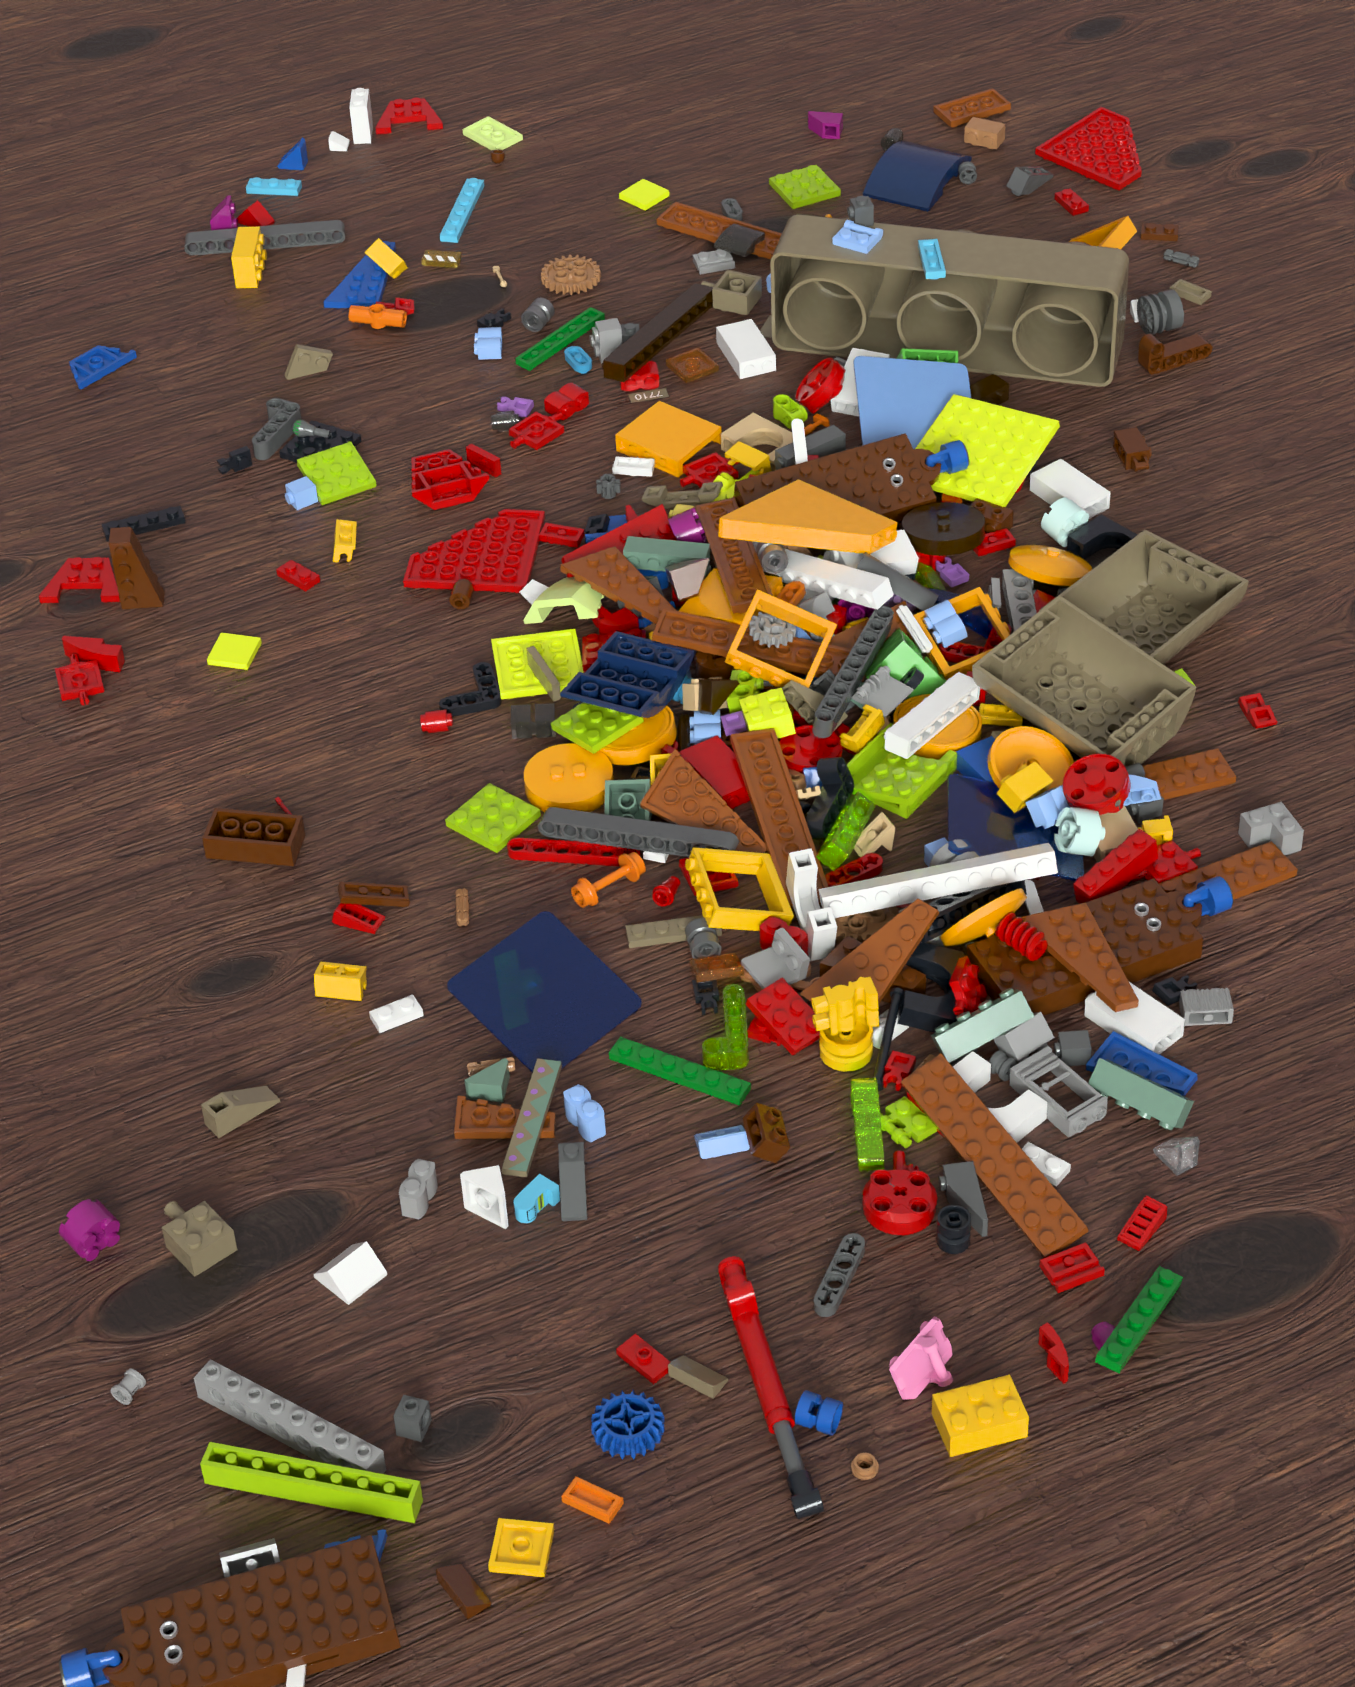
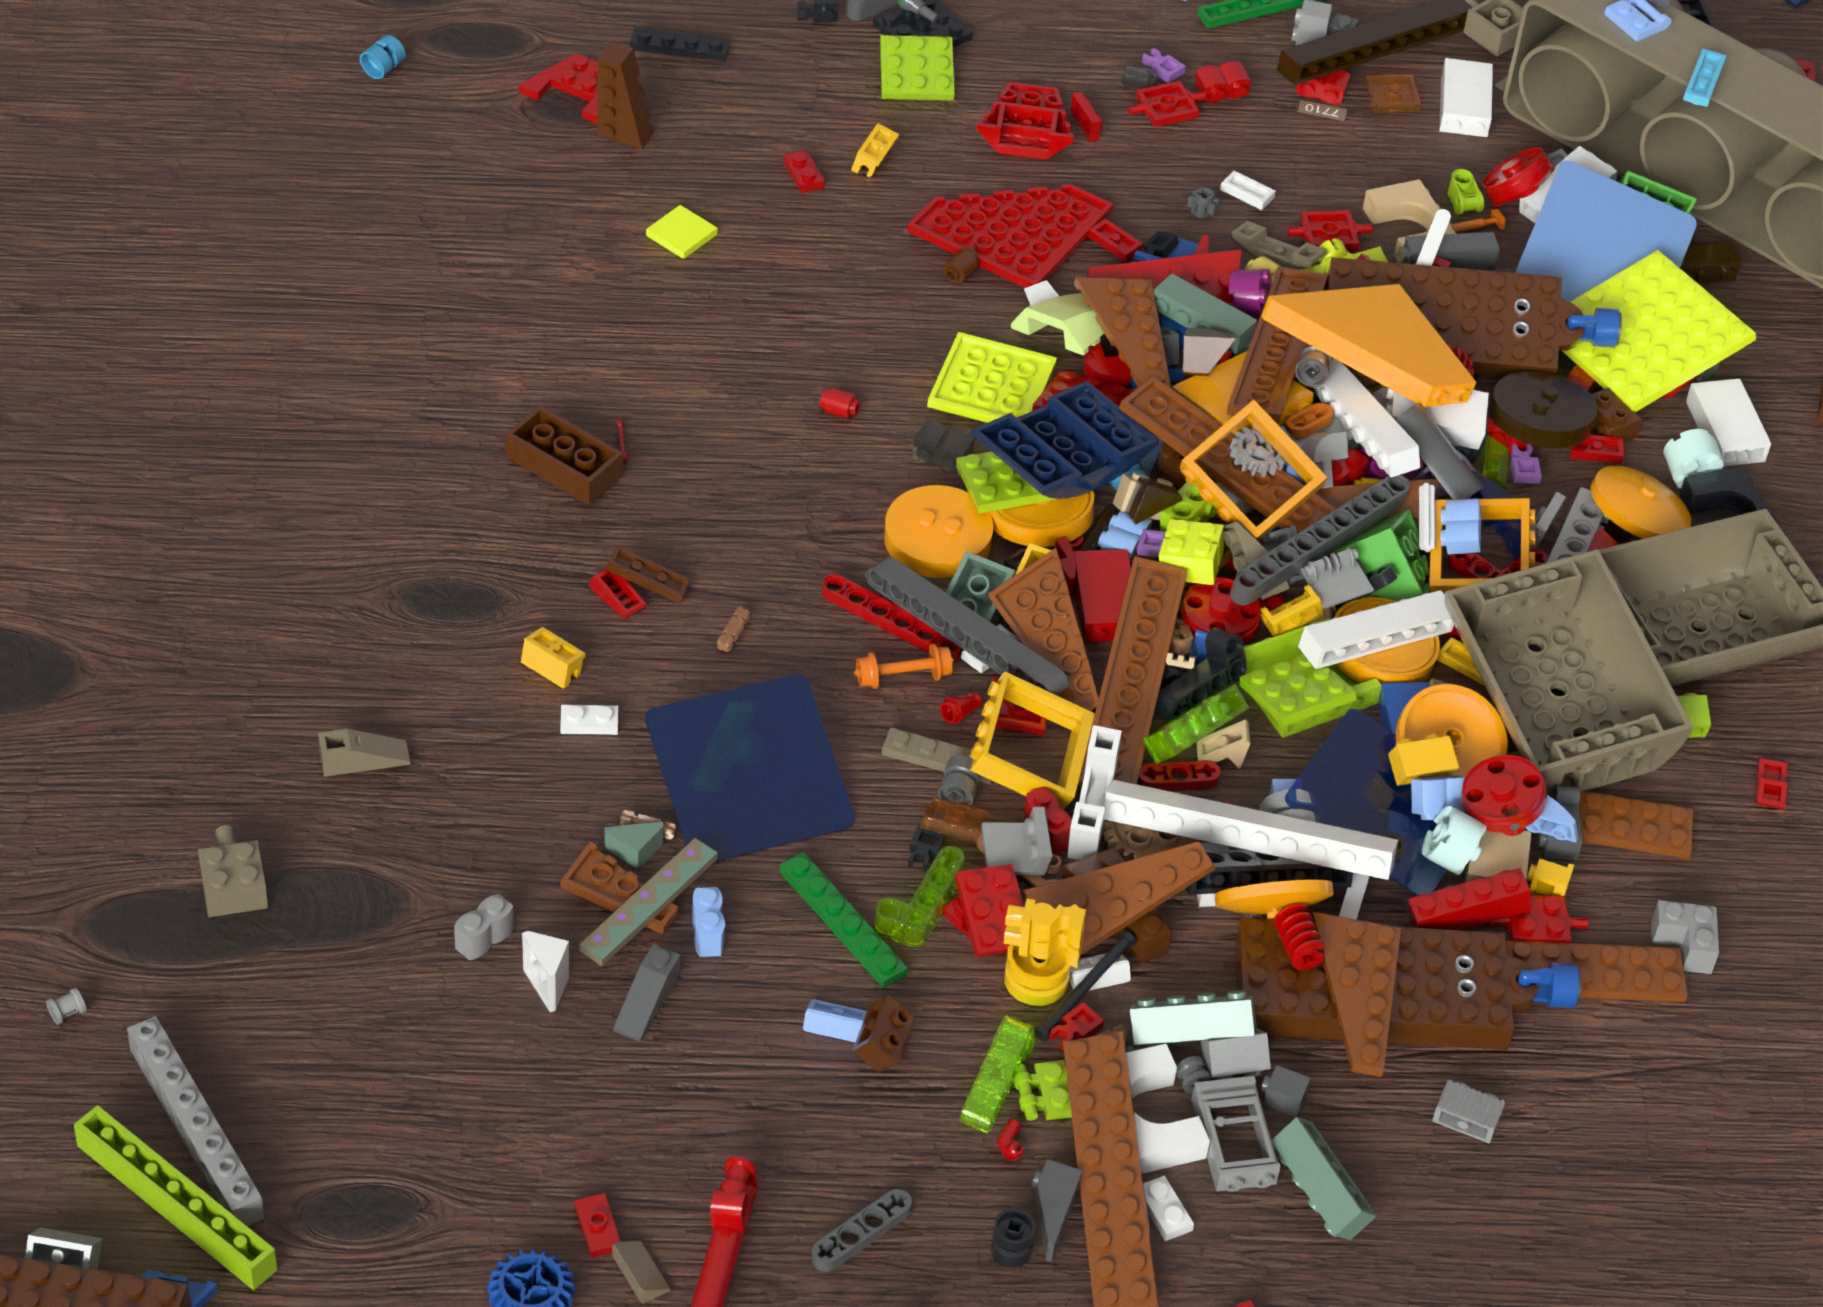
camera: 20 degrees right, 5 degrees up
(79, 680) = (501, 198): red plate -> none
(89, 649) = (535, 174): red slope -> none
(90, 1229) = (130, 818): magenta brick -> none
(301, 493) = (864, 76): light blue brick -> none
(352, 1272) = (362, 988): white slope -> none
(412, 1418) = (319, 1176): dark grey brick -> none
(480, 697) = (906, 395): black beam -> none
(493, 817) = (831, 540): lime plate -> none
(535, 1198) = (596, 993): medium azure leg -> none
(543, 673) = (984, 392): dark tan tile -> none
(578, 359) = (1268, 36): dark azure plate -> none
(666, 436) = (1305, 169): light orange panel -> none
(749, 457) = (1376, 234): yellow hinge -> none
(899, 1201) = (977, 1177): red piece -> none
(927, 1011) = (1202, 932): black arch -> none
(966, 987) = (1206, 967): red plate -> none
(1145, 1063) = (1353, 1147): blue wing -> none
(1148, 1024) = (1383, 1105): white brick -> none
(1169, 989) = (1440, 1070): black plate -> none
(1179, 1153) = (1322, 1268): clear slope -> none

